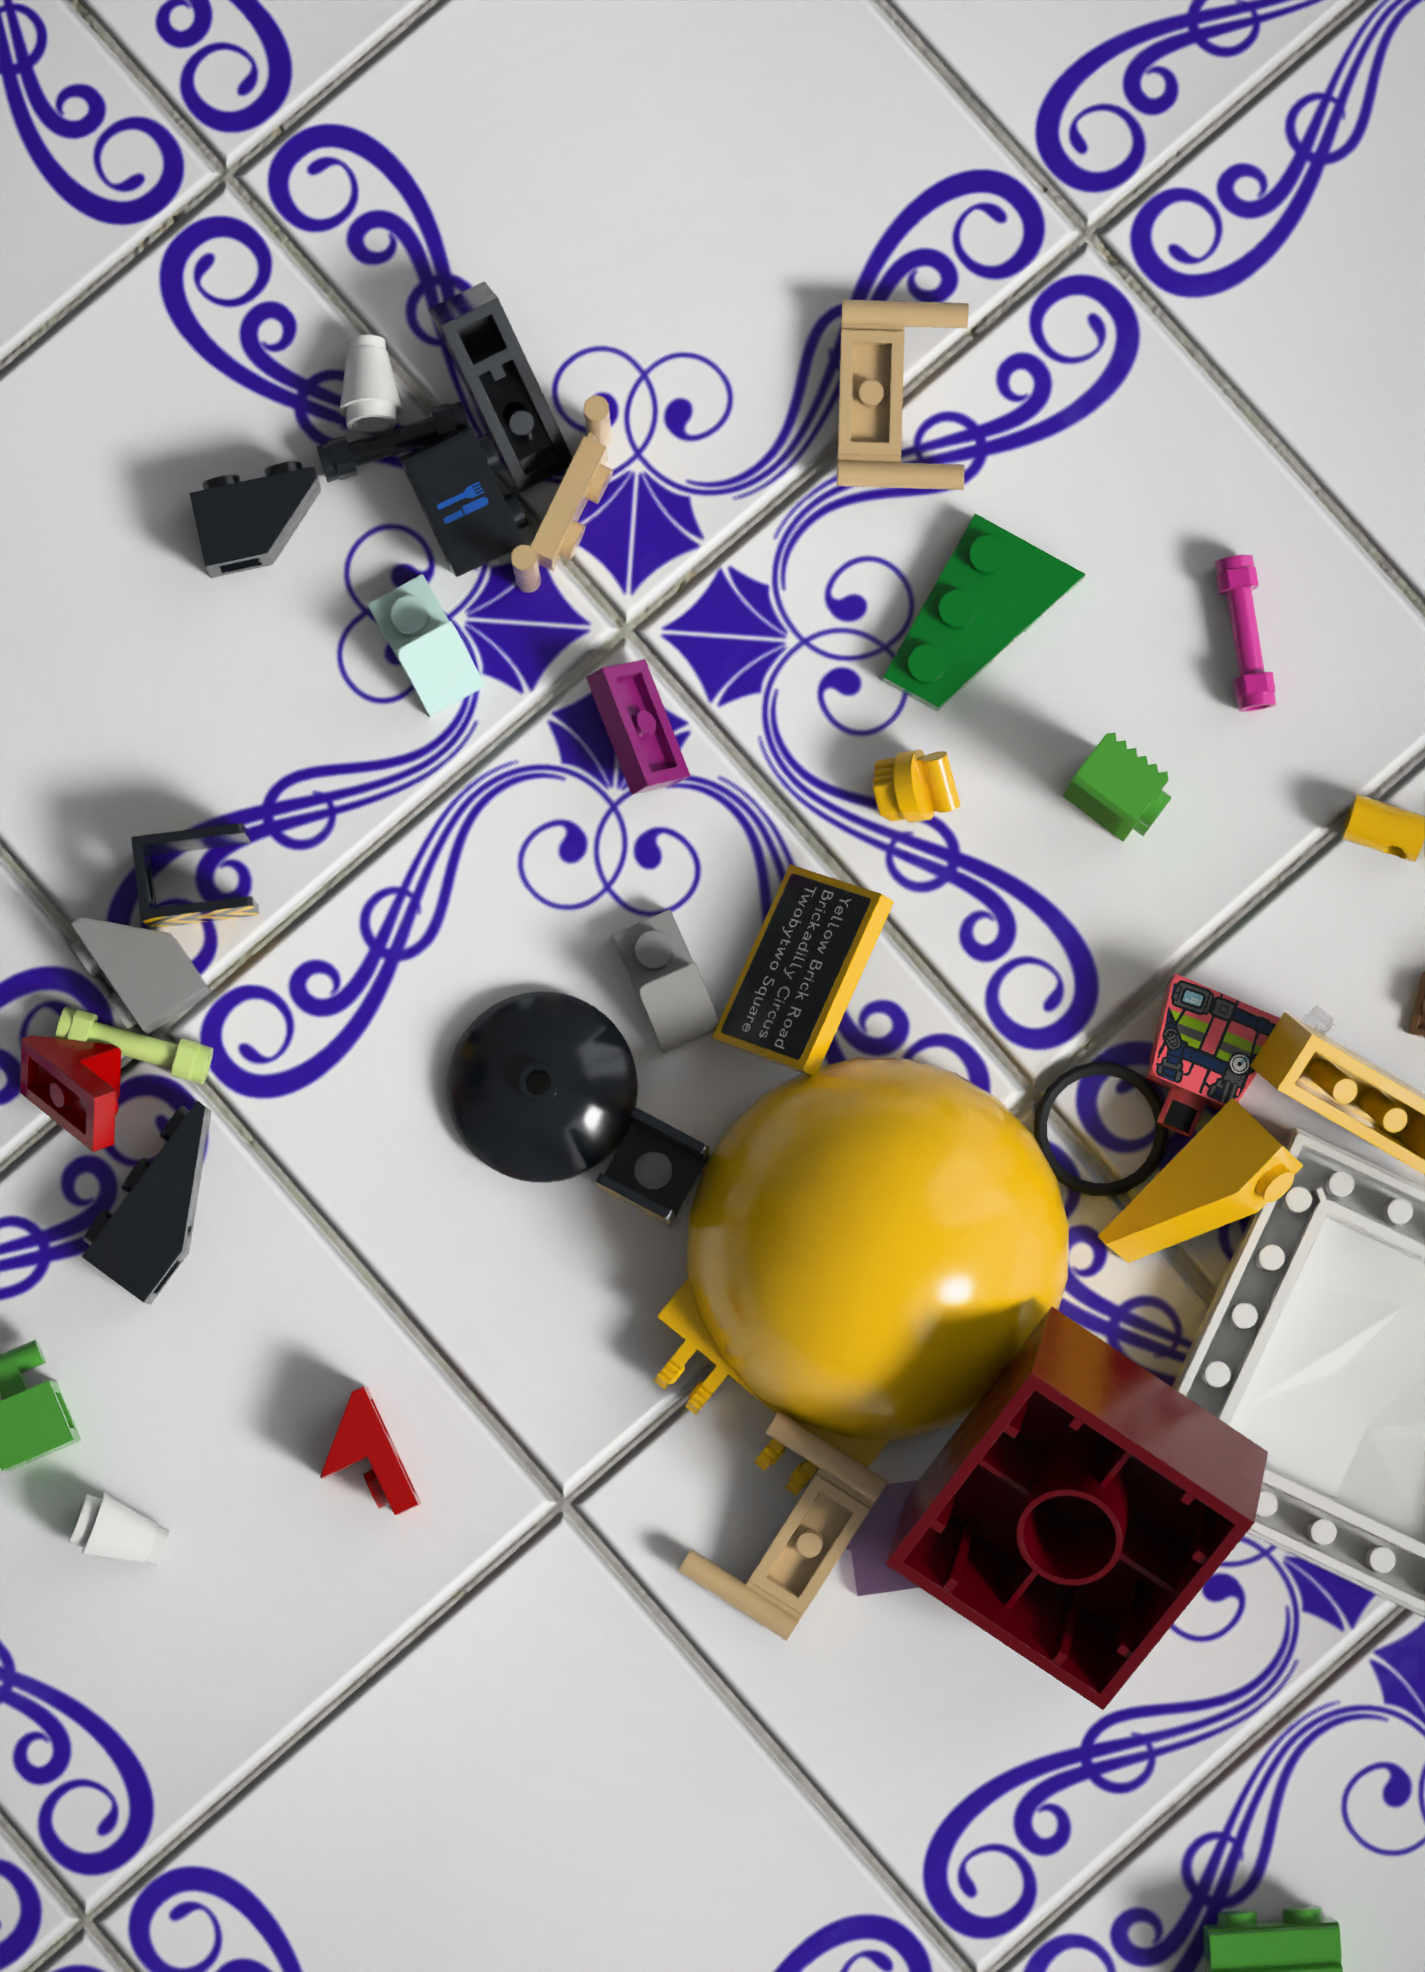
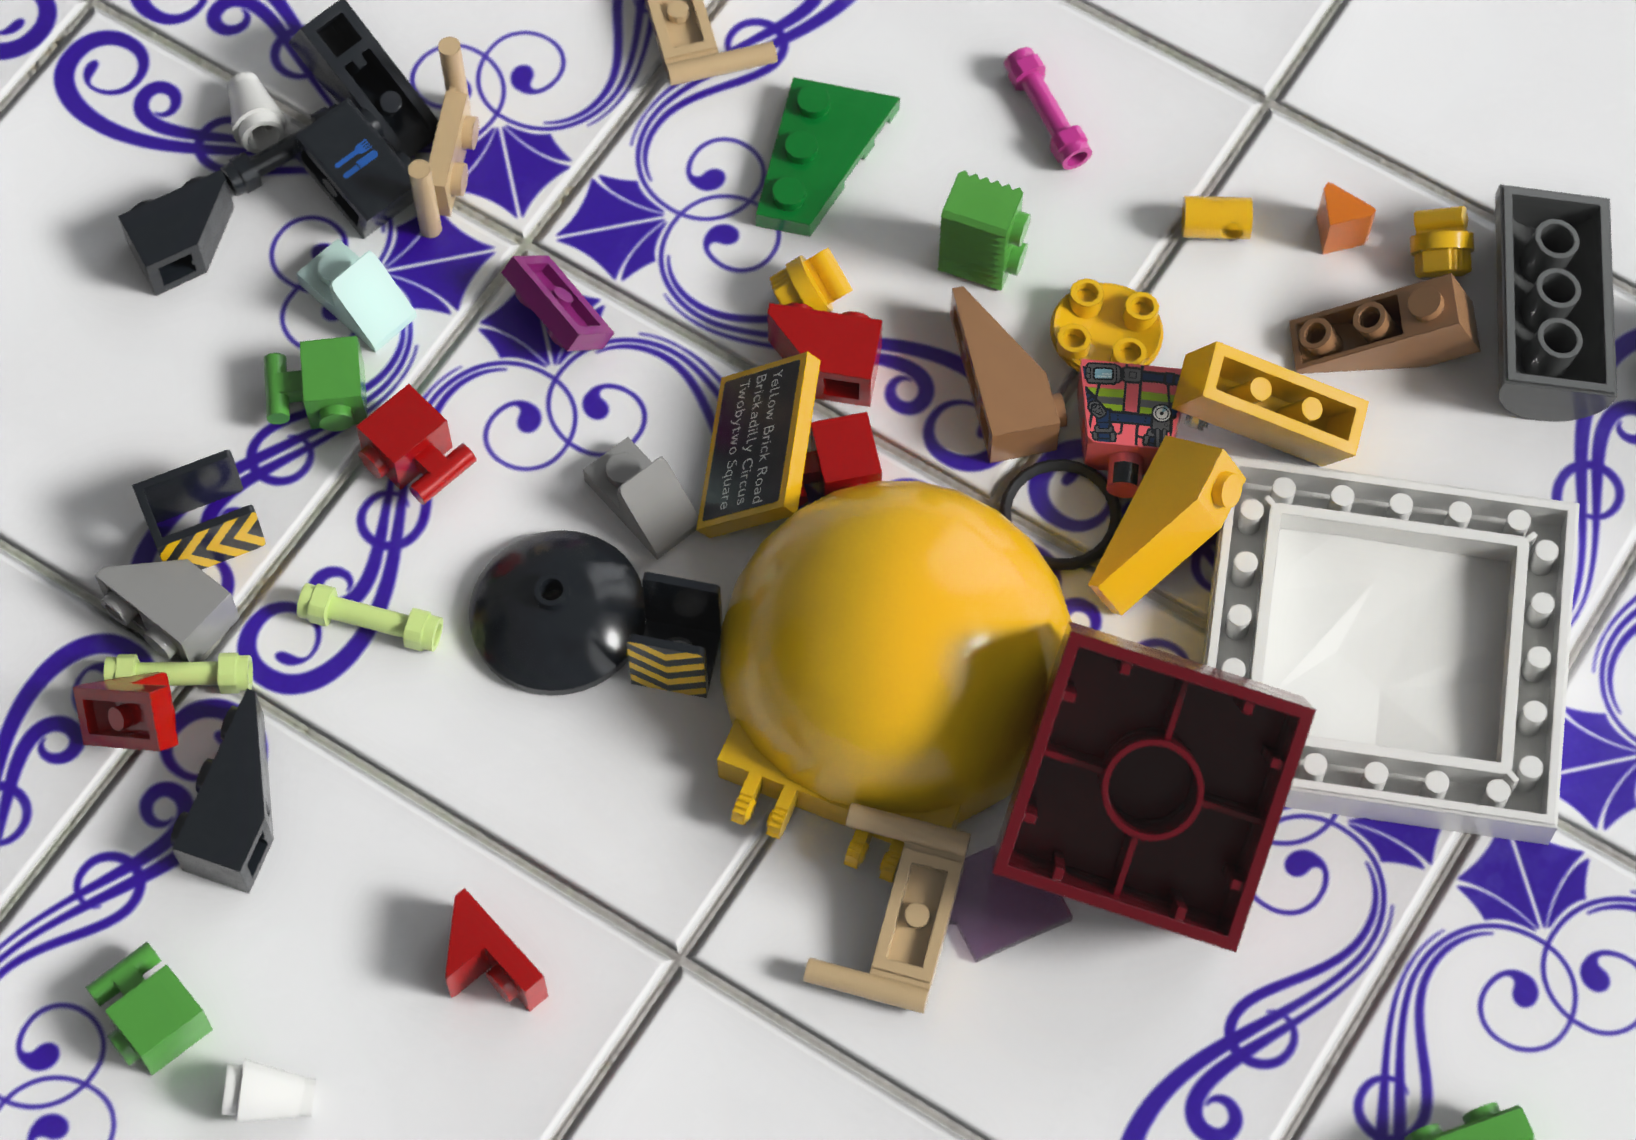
camera: 15 degrees left, 20 degrees down
(369, 753) = (327, 384): none -> bright green brick
(391, 1067) = (321, 605): none -> yellowish green bar
(436, 846) = (411, 439): none -> red brick
(889, 1010) = (841, 455): none -> red brick
(912, 871) = (844, 343): none -> red slope
(1088, 974) = (1006, 385): none -> medium nougat slope
(1220, 929) = (1106, 325): none -> yellow dish

